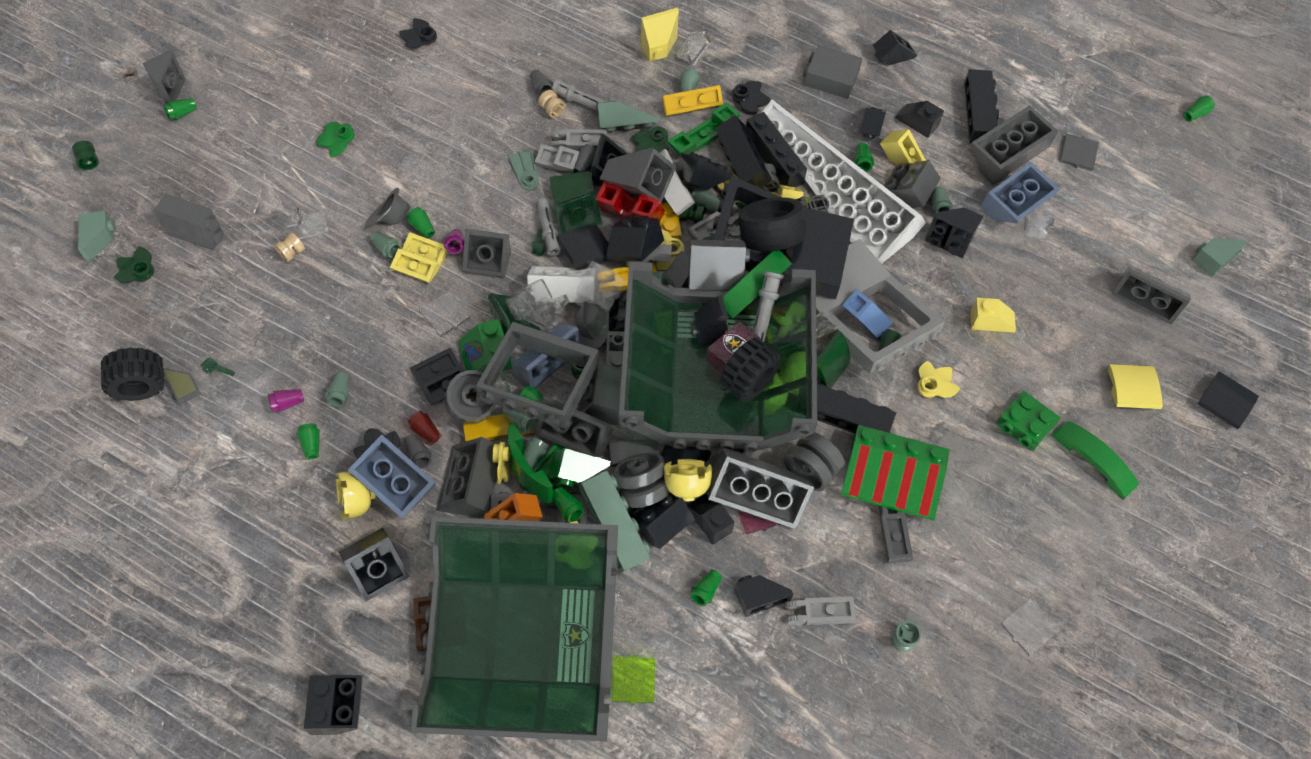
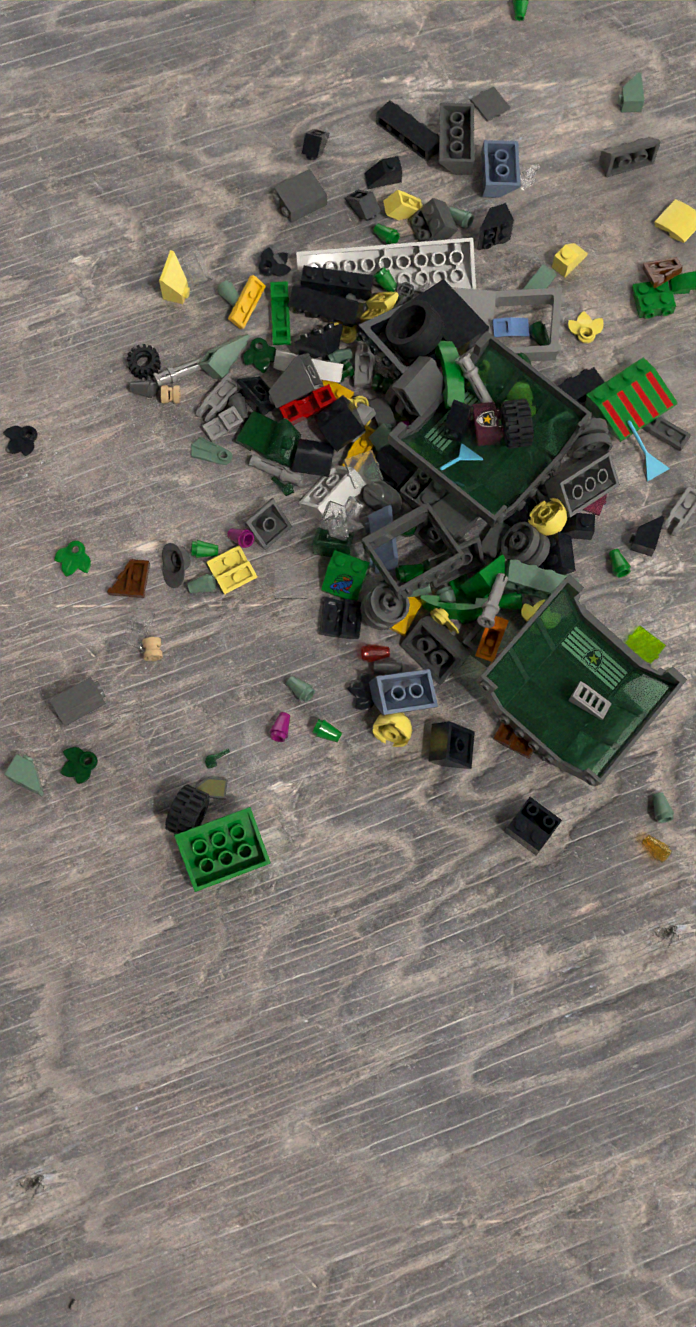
camera: 50 degrees left, 10 degrees up
(109, 428) = (222, 849): none -> green slope
(348, 190) = (132, 580): none -> reddish brown wing
(513, 639) = (580, 702): none -> light grey slope
(532, 483) = (491, 607): none -> light grey pin
(566, 58) = (143, 371): none -> black tyre
(686, 354) = (464, 454): none -> medium azure piece
(814, 182) = (385, 279): none -> green cone
(846, 547) = (653, 466): none -> medium azure piece
(946, 307) = (541, 279): none -> sand green slope
(1065, 406) = (662, 270): none -> reddish brown wing

